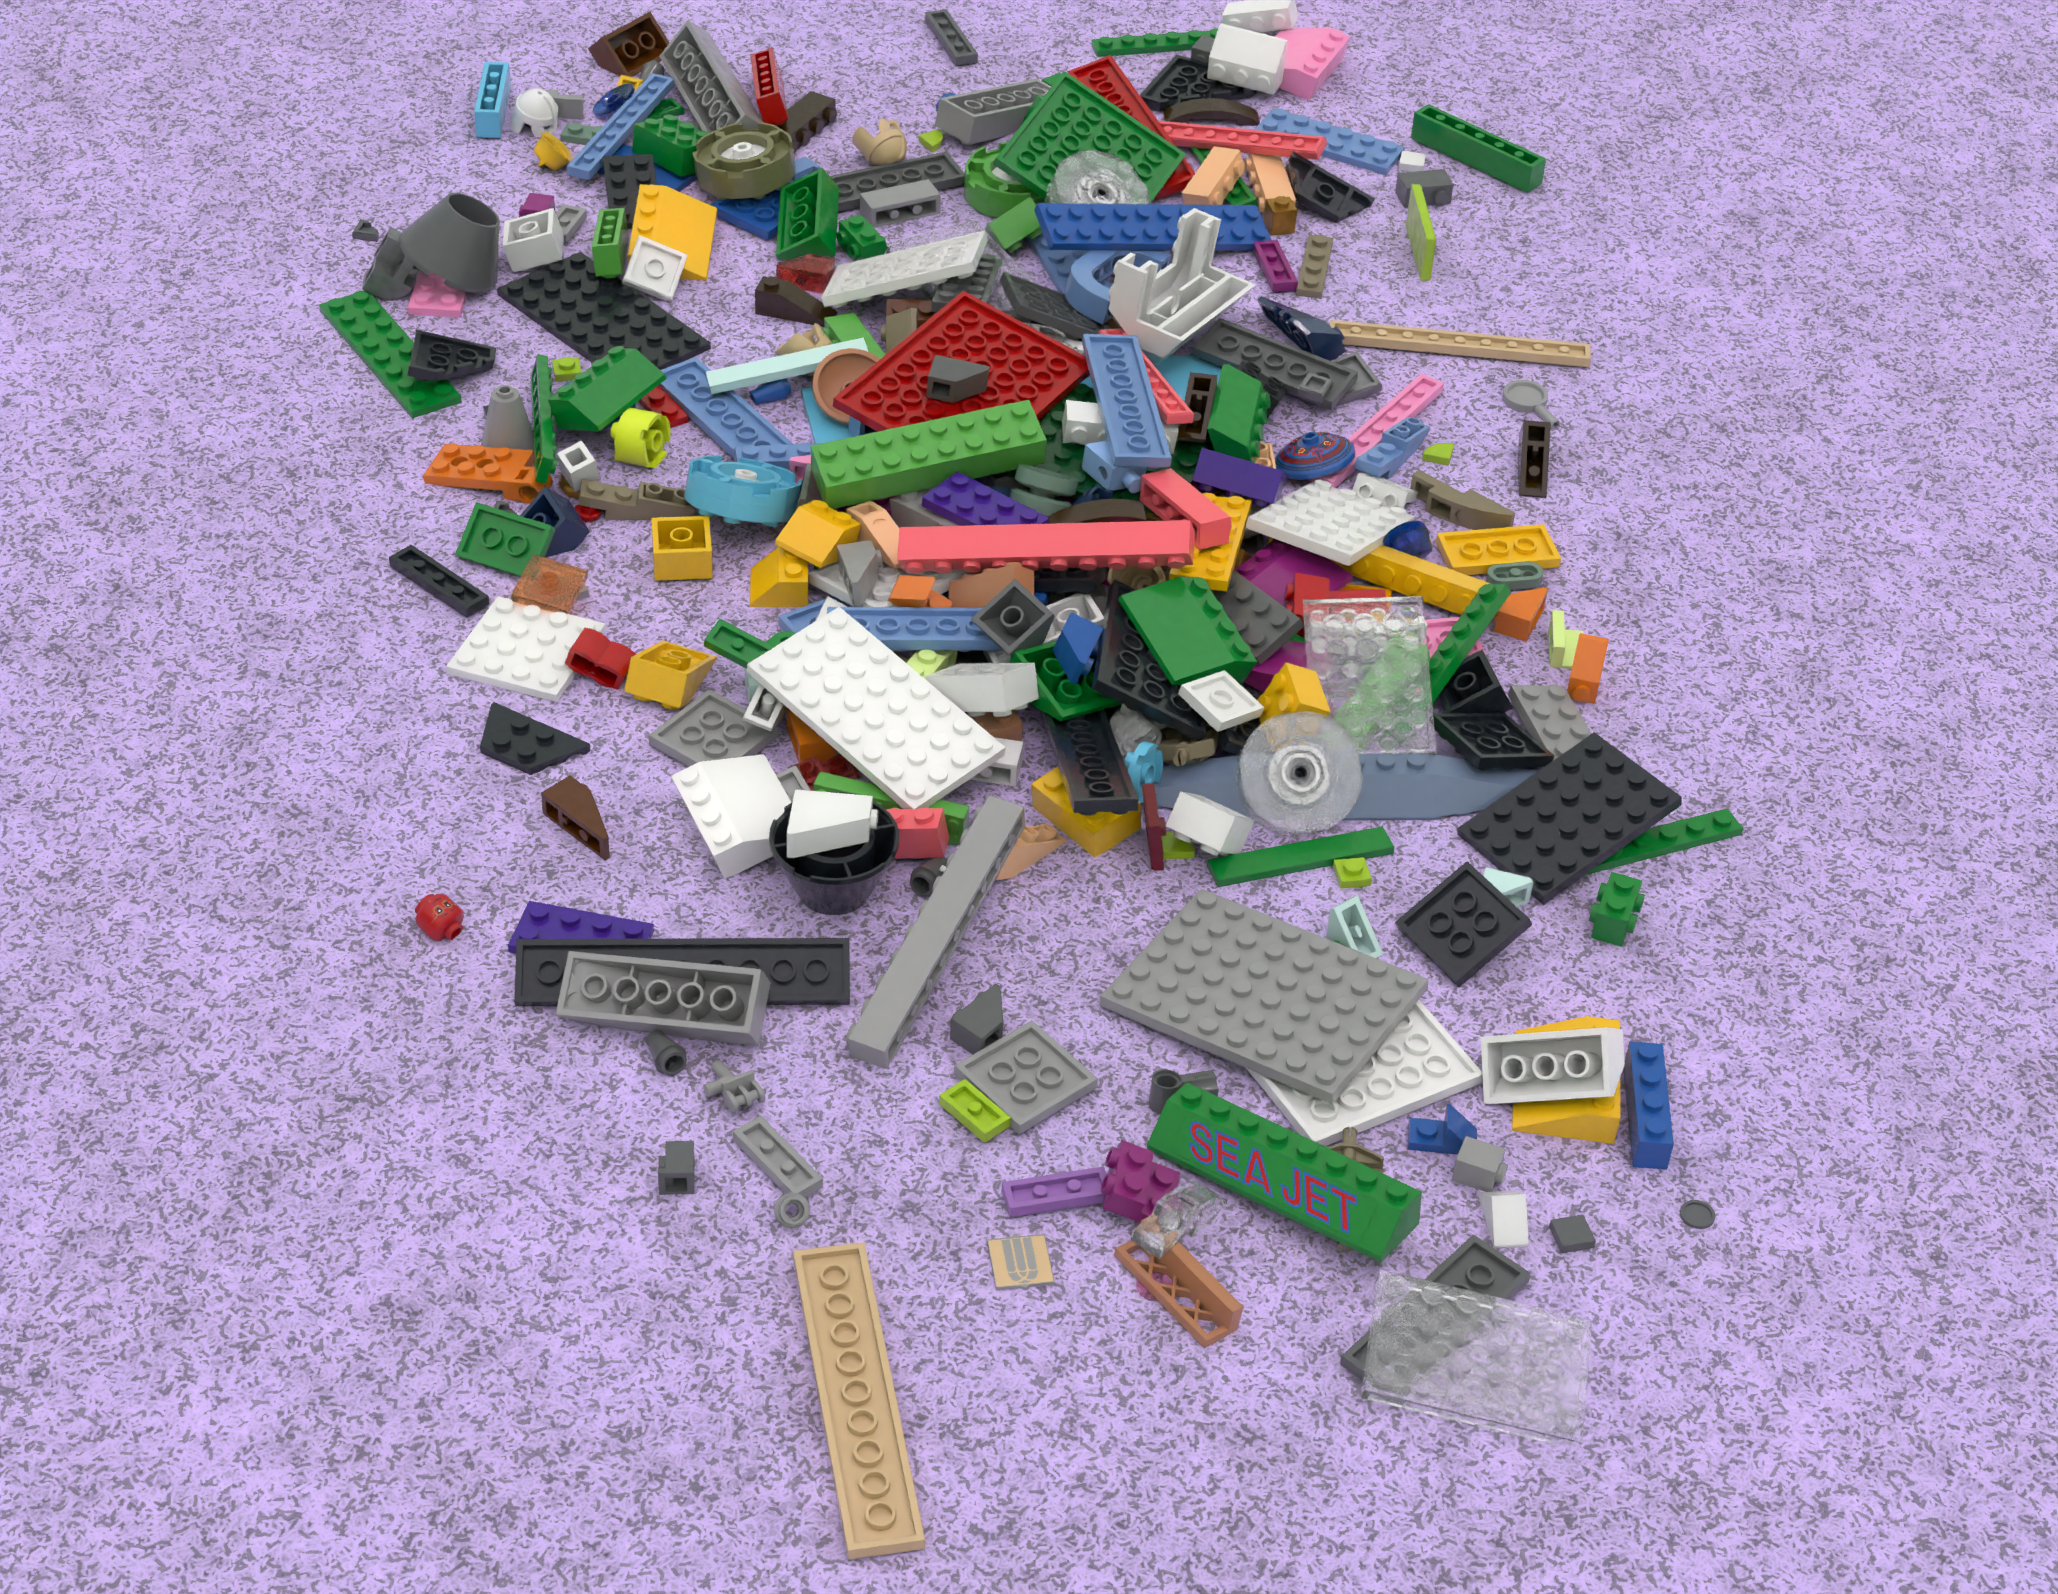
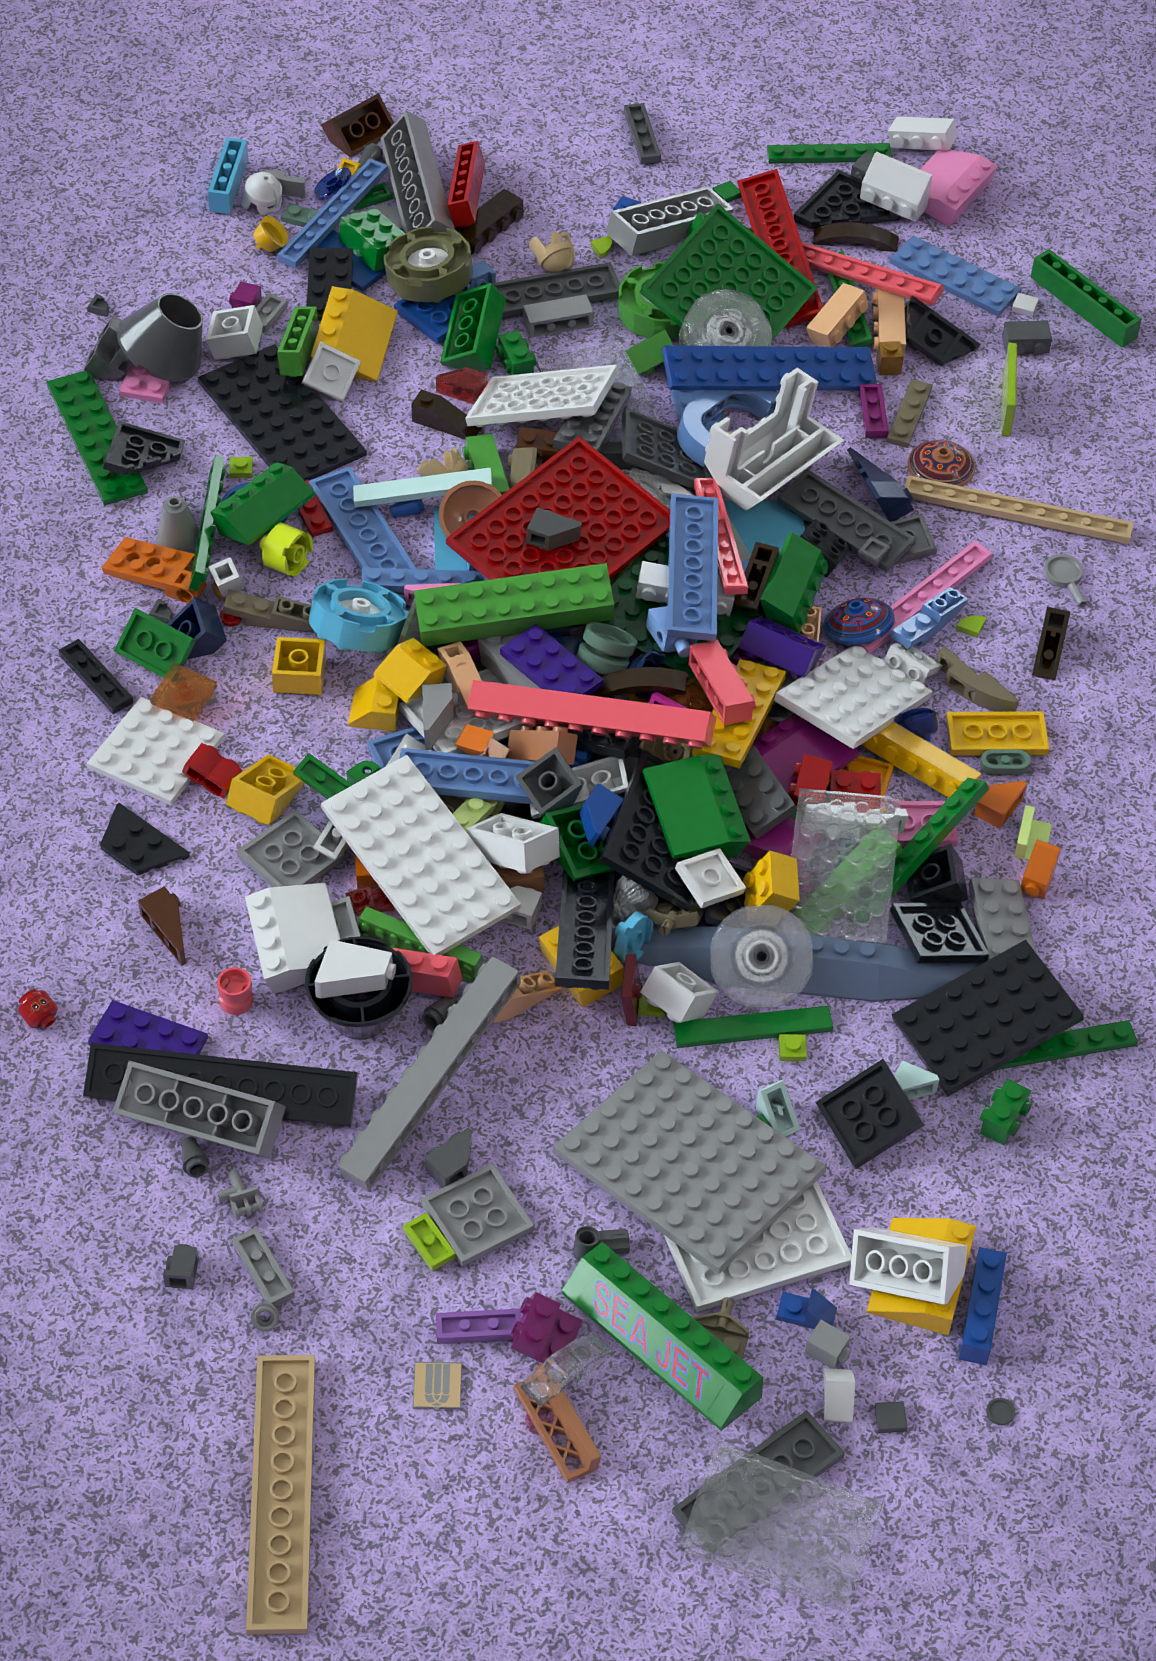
camera: 10 degrees right, 10 degrees up
(679, 874) = (235, 990): none -> coral wheel
(1363, 306) = (942, 462): none -> dish

